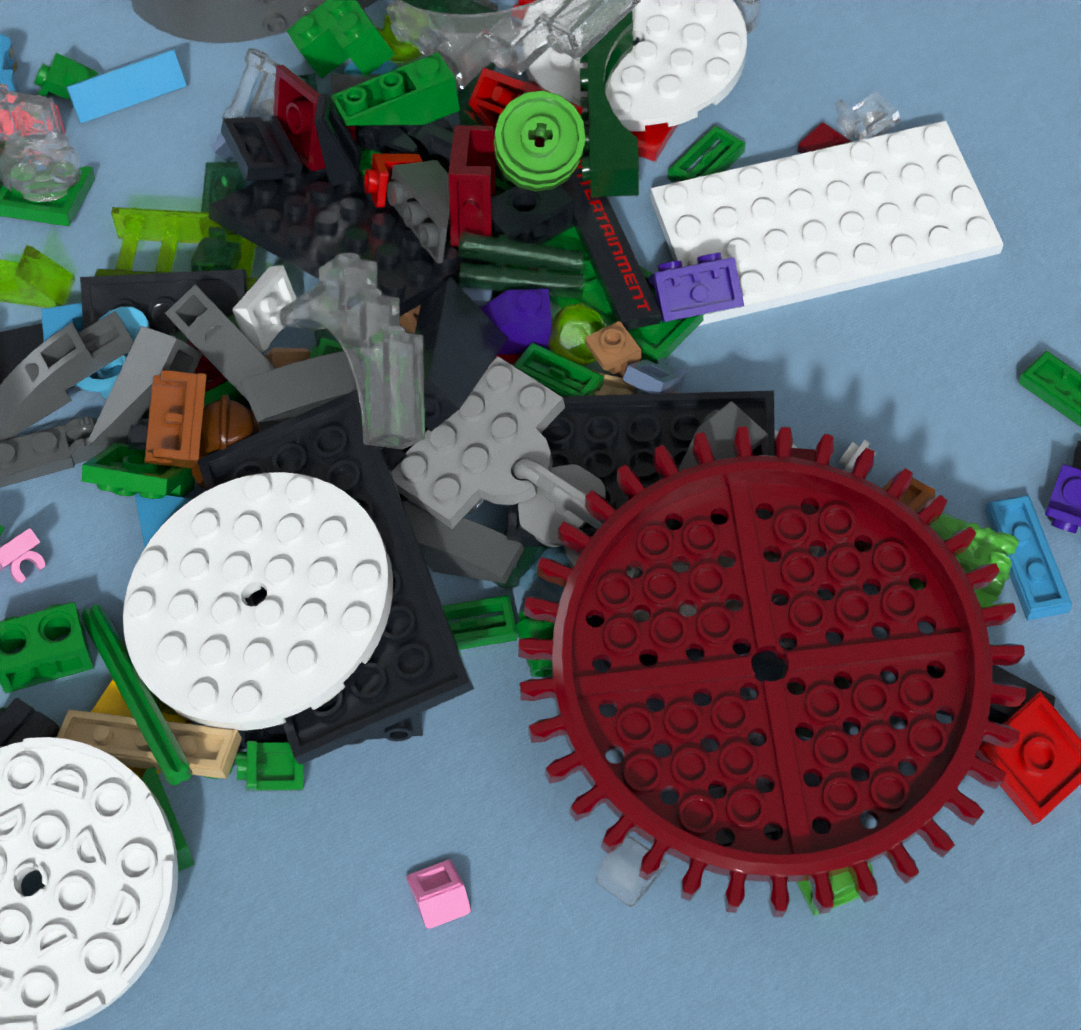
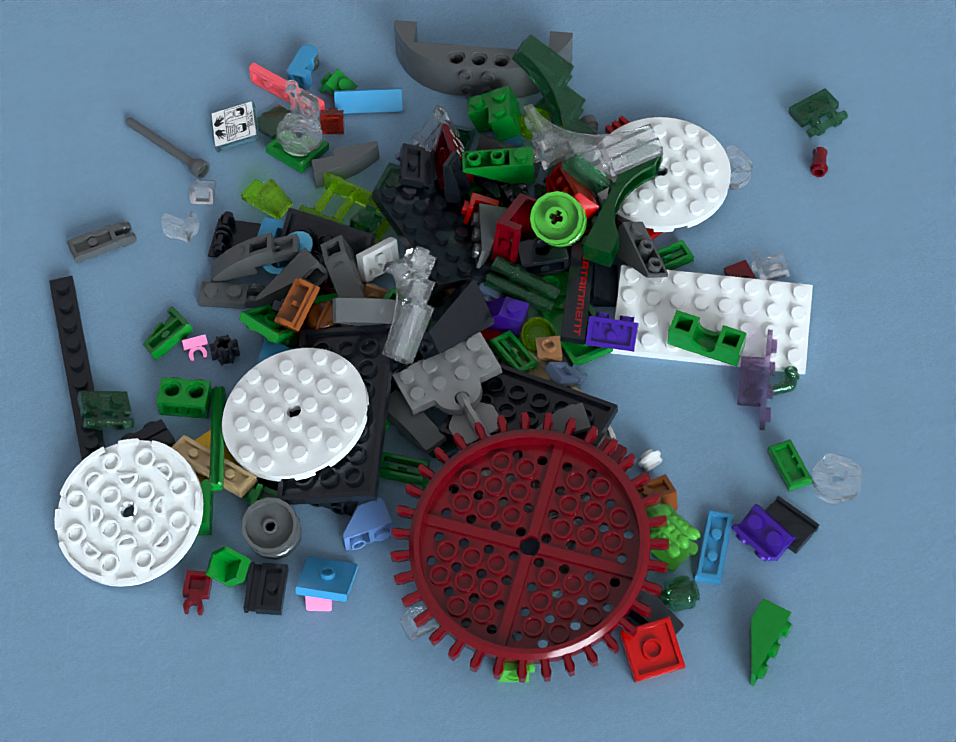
camera: 25 degrees right, 0 degrees up
(72, 542) = (224, 349): none -> black gear
(84, 132) = (332, 121): none -> clear red tile
(133, 183) = (345, 161): none -> dark grey slope
(214, 970) = (195, 588): none -> dark red plate
(257, 909) = (228, 566): none -> green panel
(305, 780) = (257, 532): none -> dark grey wheel
(341, 920) = (266, 588): none -> black plate
(441, 860) = (326, 579): none -> dark azure plate
(465, 736) = (368, 524): none -> medium blue slope
(541, 64) = (586, 173): none -> clear green tile
(639, 228) = (605, 285): none -> black slope
(674, 157) = (639, 251): none -> dark grey slope
(877, 248) = (690, 335): none -> green arch
(948, 284) = (755, 378): none -> clear purple bracket
(988, 272) = (788, 382): none -> clear green arm
(1040, 646) = (680, 593): none -> clear green head

